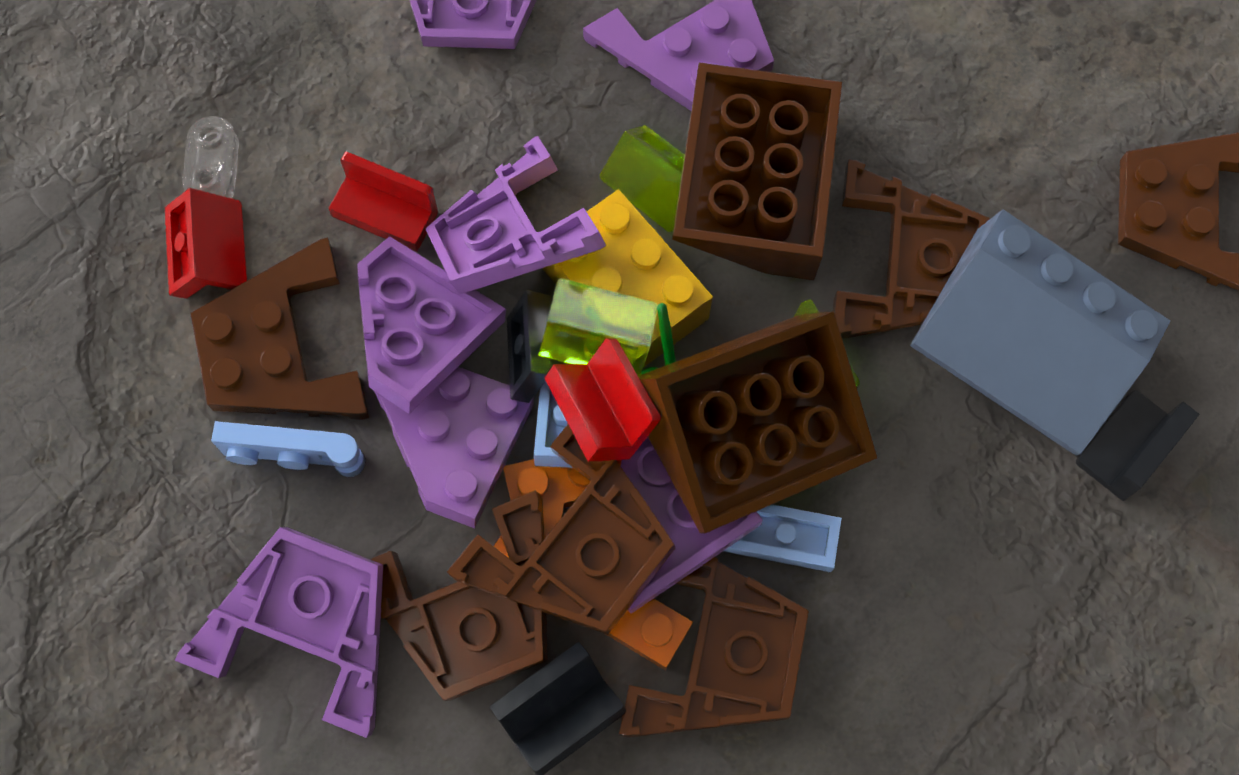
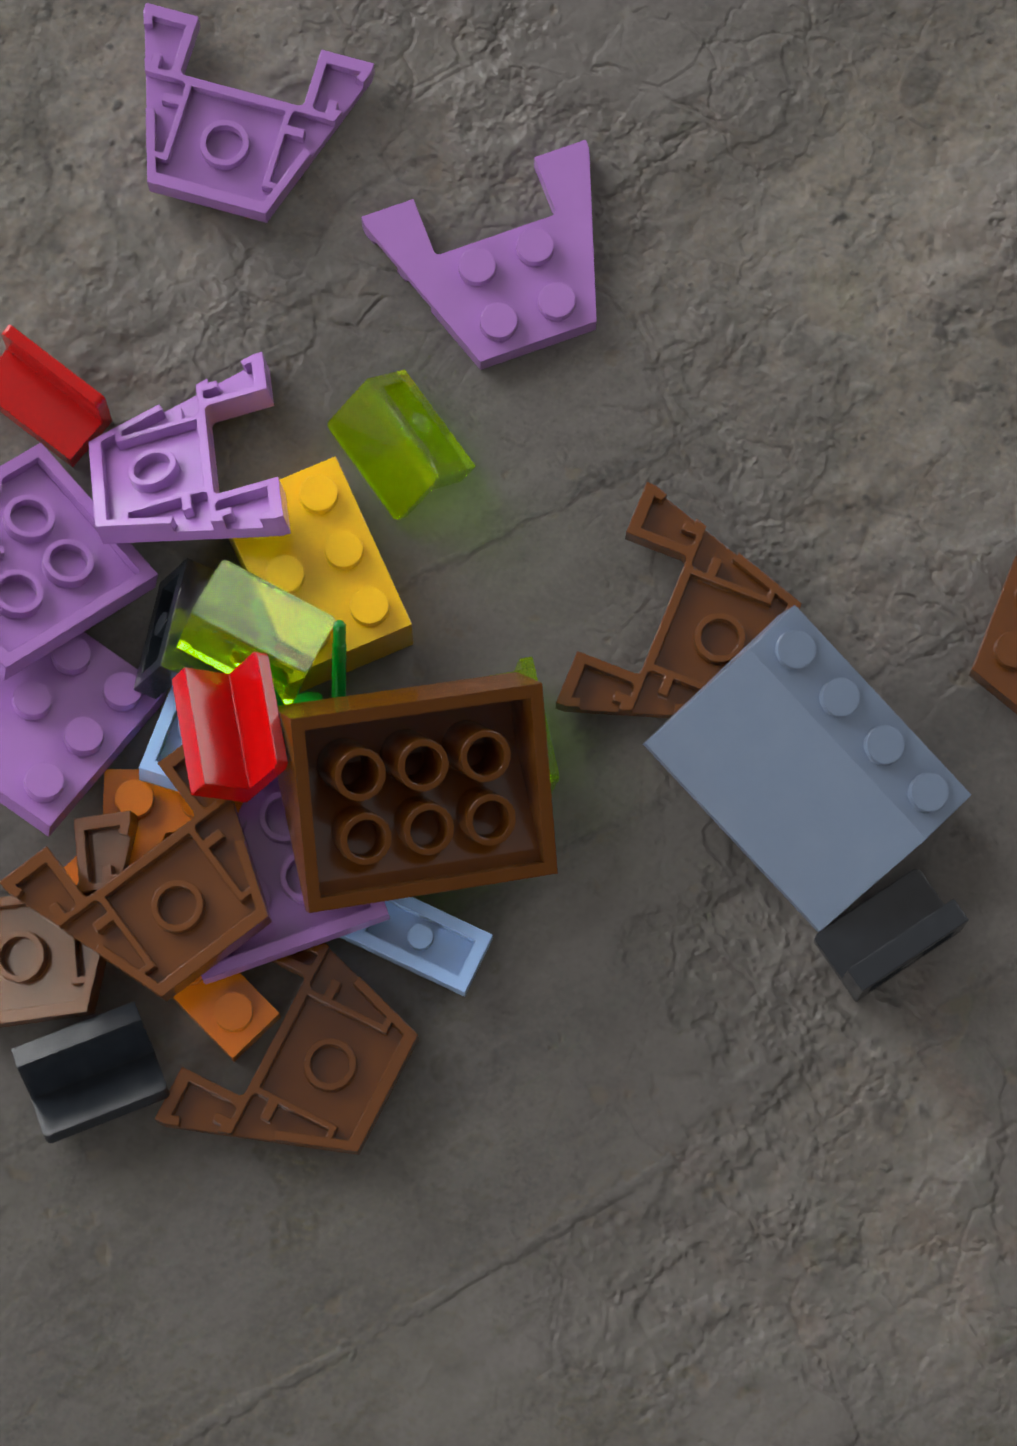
camera: 15 degrees right, 5 degrees up
(759, 169) = (522, 468): reddish brown slope -> none

